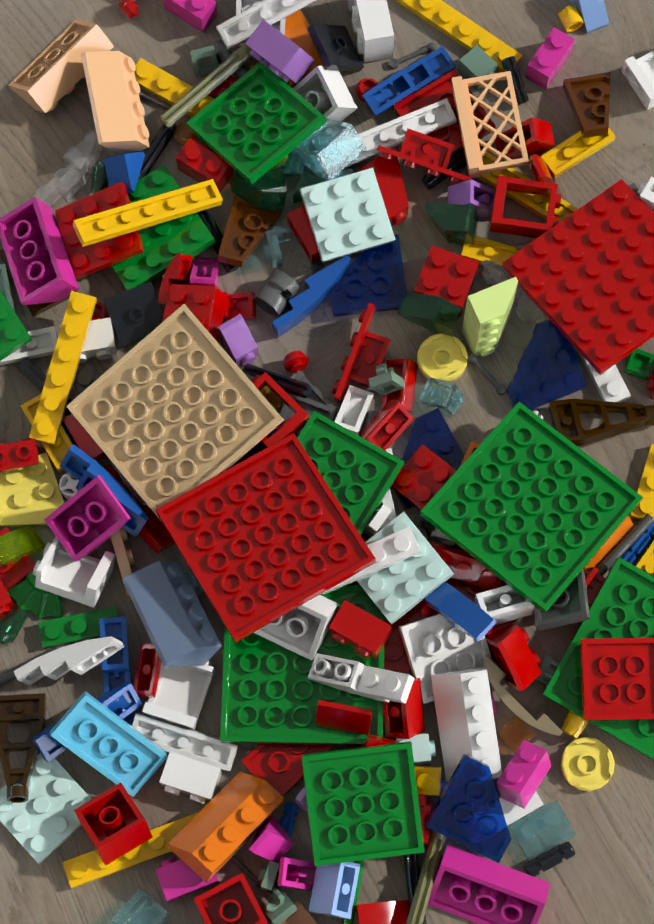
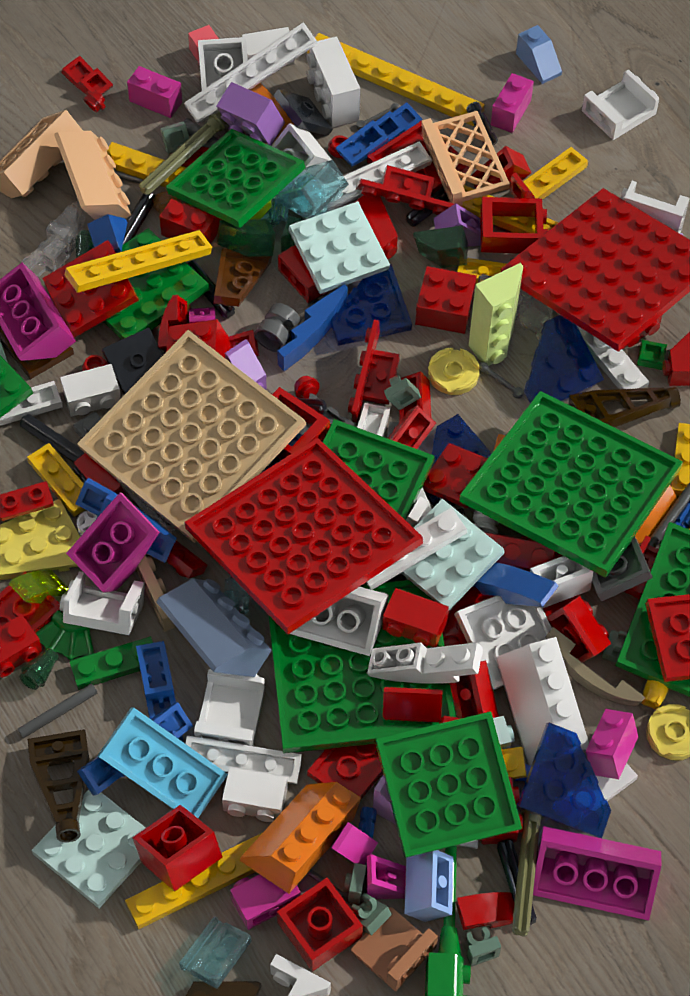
camera: 10 degrees left, 15 degrees down
(63, 368) = (68, 414): yellow plate -> none
(75, 657) = (117, 682): white slope -> none
(147, 672) = (195, 691): red slope -> none
(272, 249) = (268, 282): clear light blue bracket -> none
(429, 312) = (435, 326): clear green slope -> none
(442, 395) = (459, 401): clear light blue bracket -> none
(476, 64) = (441, 110): sand green brick -> none
(515, 733) = (593, 708): clear orange plate -> none
(542, 830) = (641, 803): clear light blue plate -> none
(549, 859) = (655, 829): black axle -> none
(570, 18) = (525, 69): yellow hose -> none
(590, 102) = (557, 134): reddish brown wing -> none

